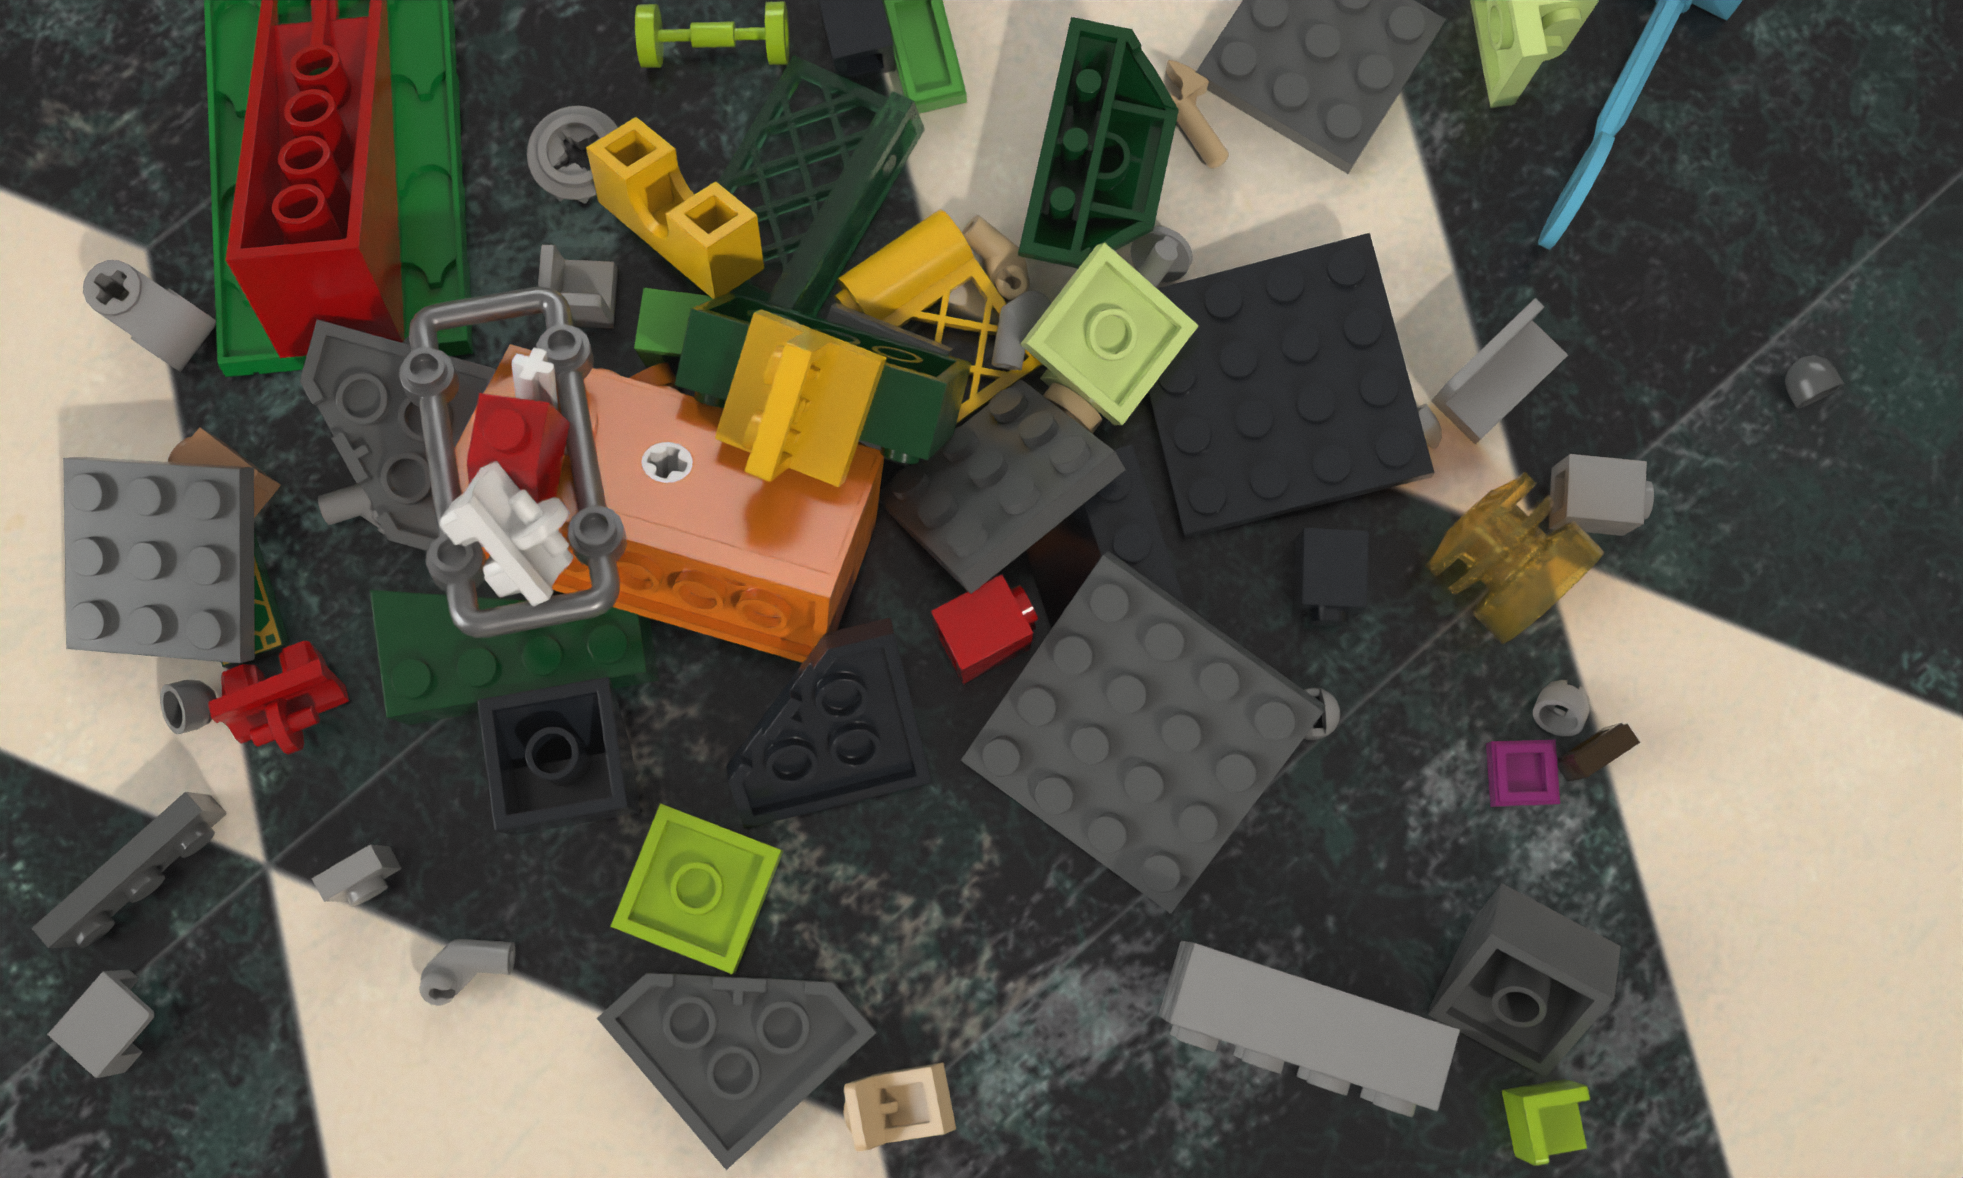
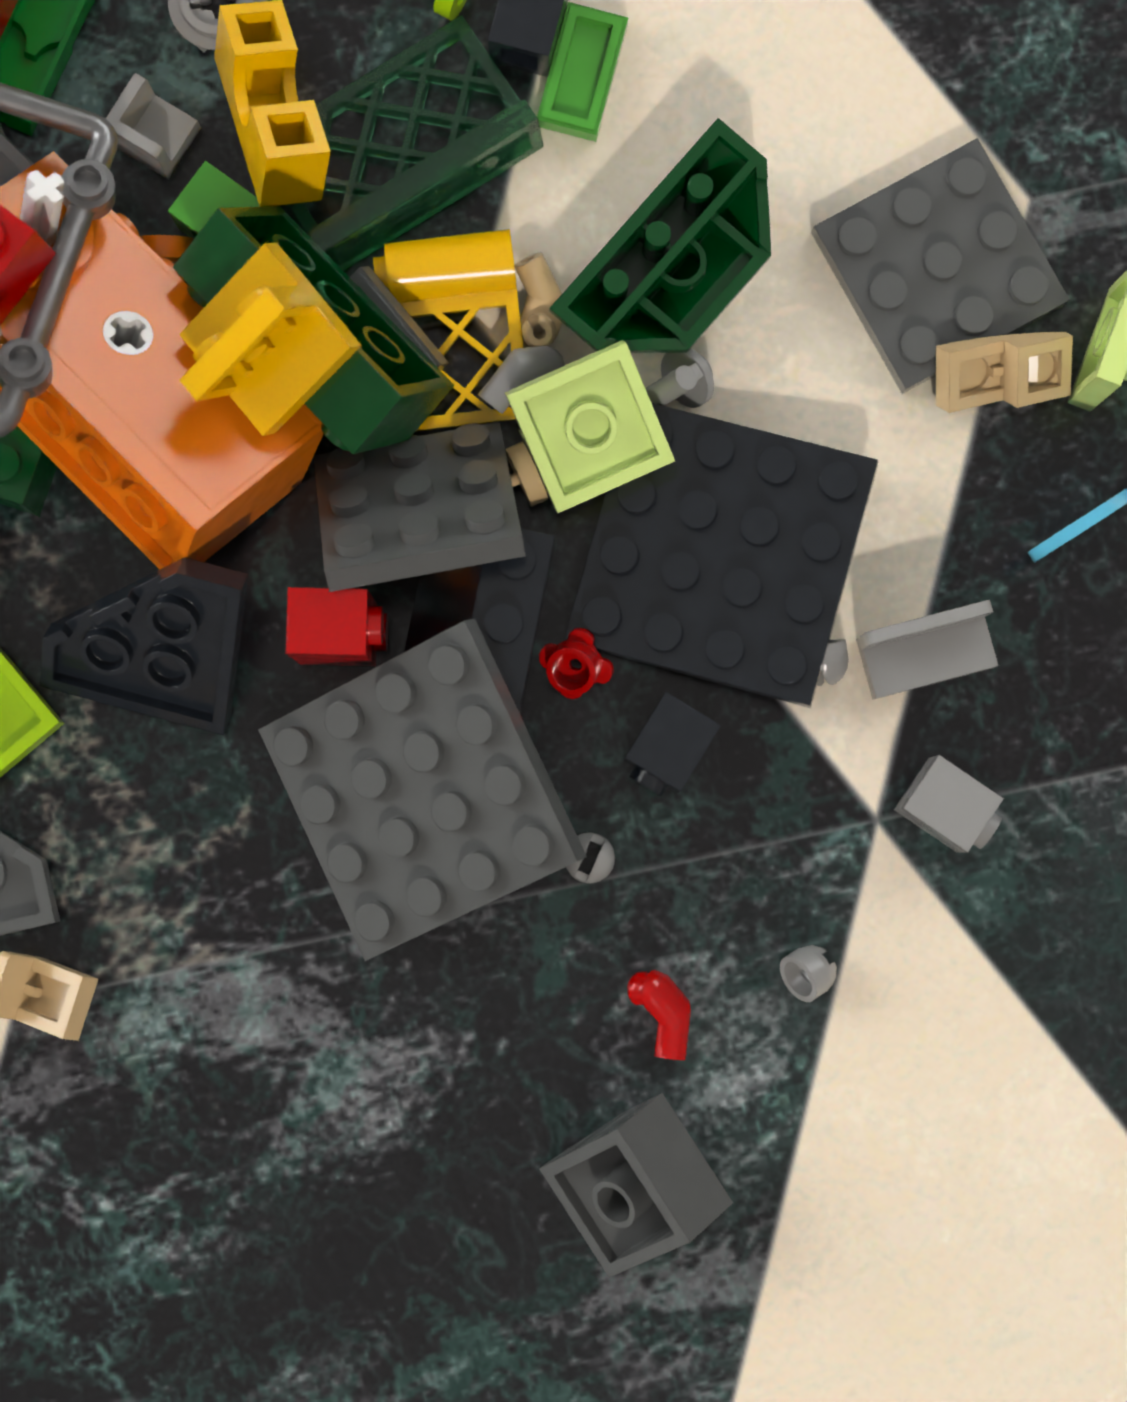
camera: 25 degrees right, 5 degrees up
(1189, 116) = (787, 263): tan bar -> none
(1212, 567) = (570, 680): none -> red plate
(1319, 1028) = (419, 1119): light grey brick -> none
(1426, 103) = (1004, 367): none -> tan slope
(1460, 806) = (668, 1006): none -> red arm
(1514, 557) = (835, 818): clear yellow wheel -> none
(1522, 773) = (742, 1010): magenta tile -> none
(1545, 1119) = (586, 1311): lime panel -> none
(1596, 751) = (814, 1026): dark brown tile -> none

